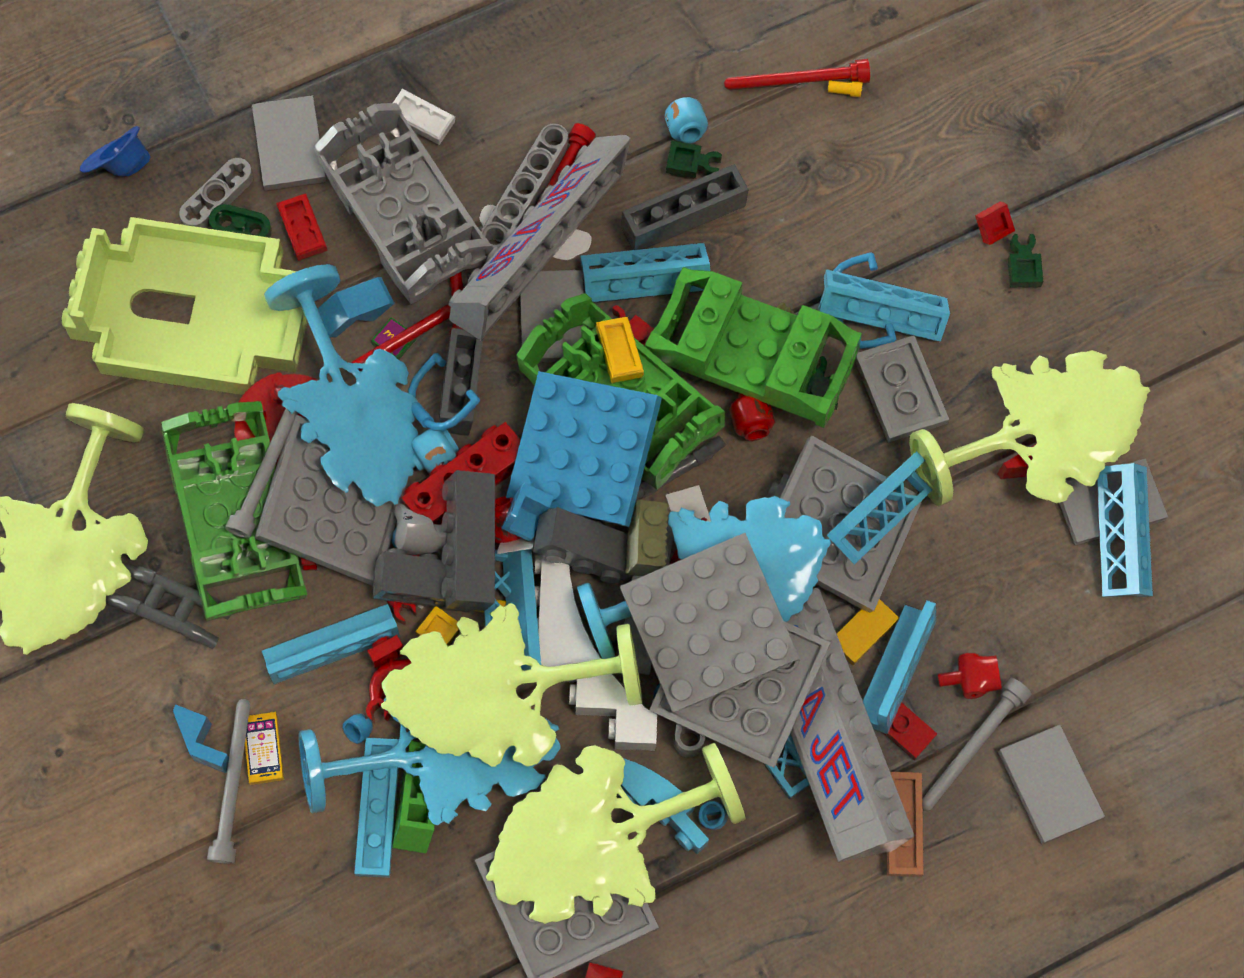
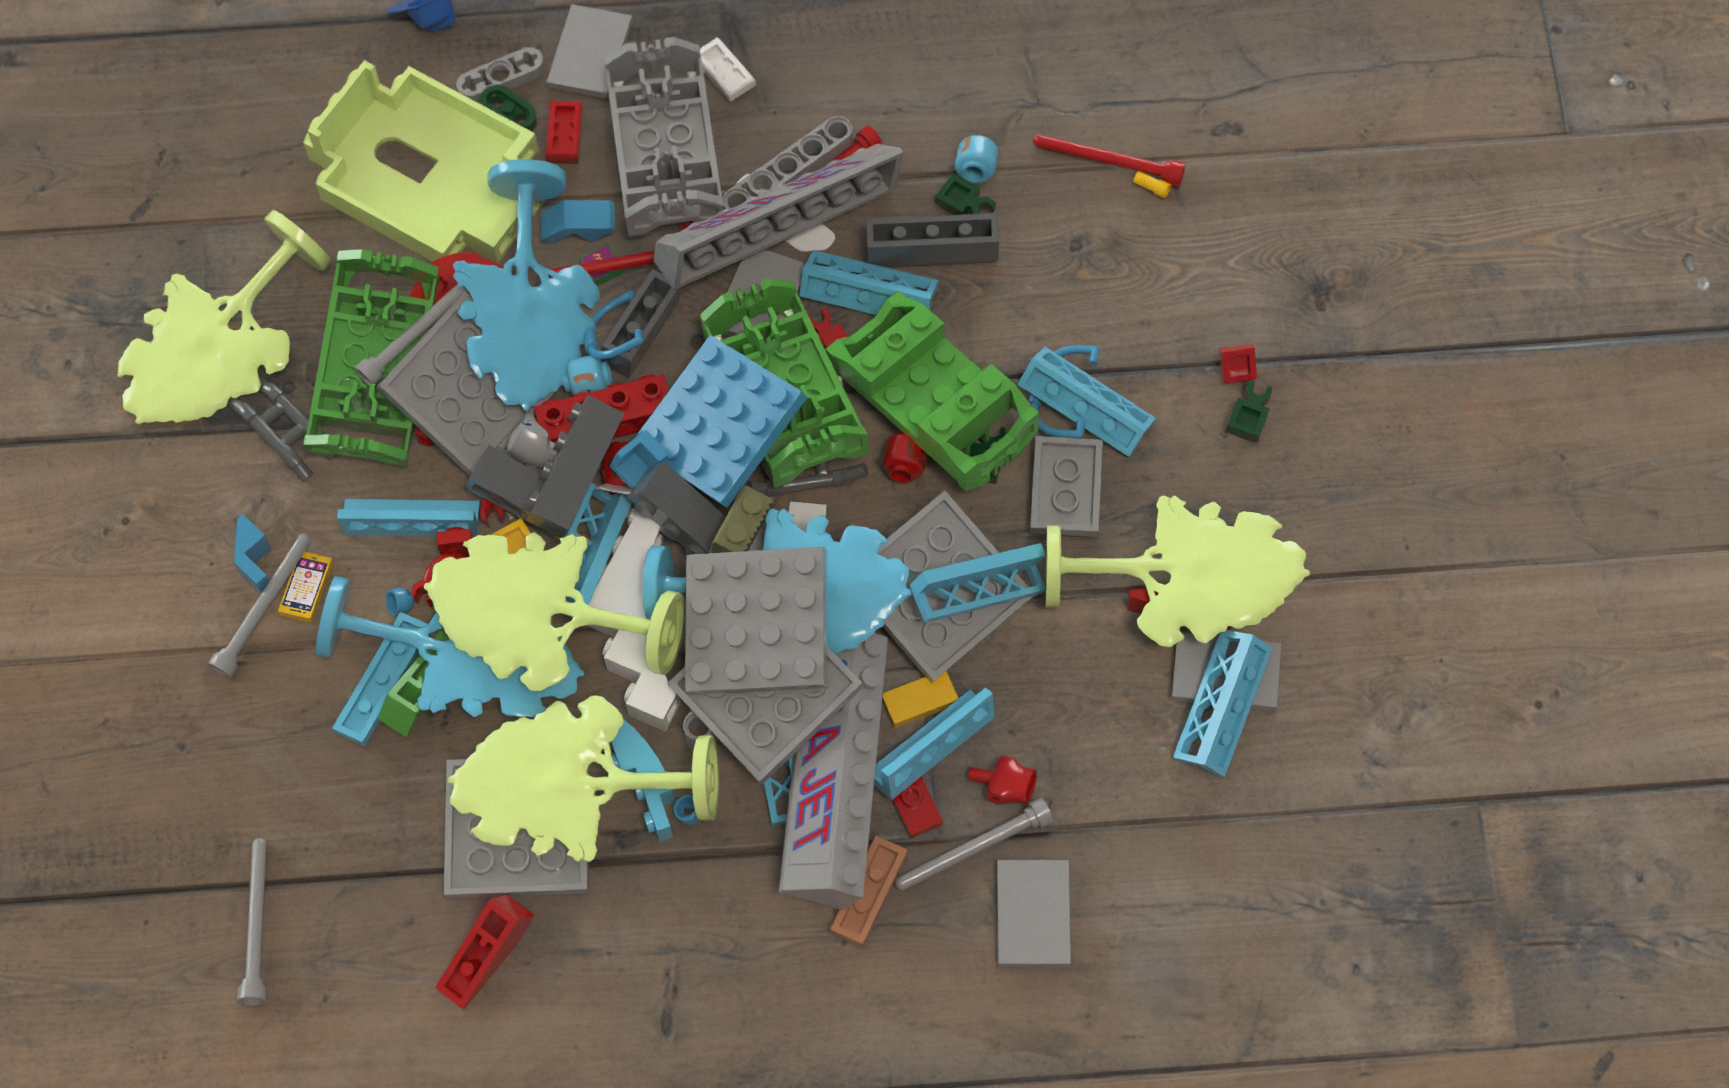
camera: 30 degrees right, 5 degrees down
(619, 349) = (797, 343): yellow tile -> none

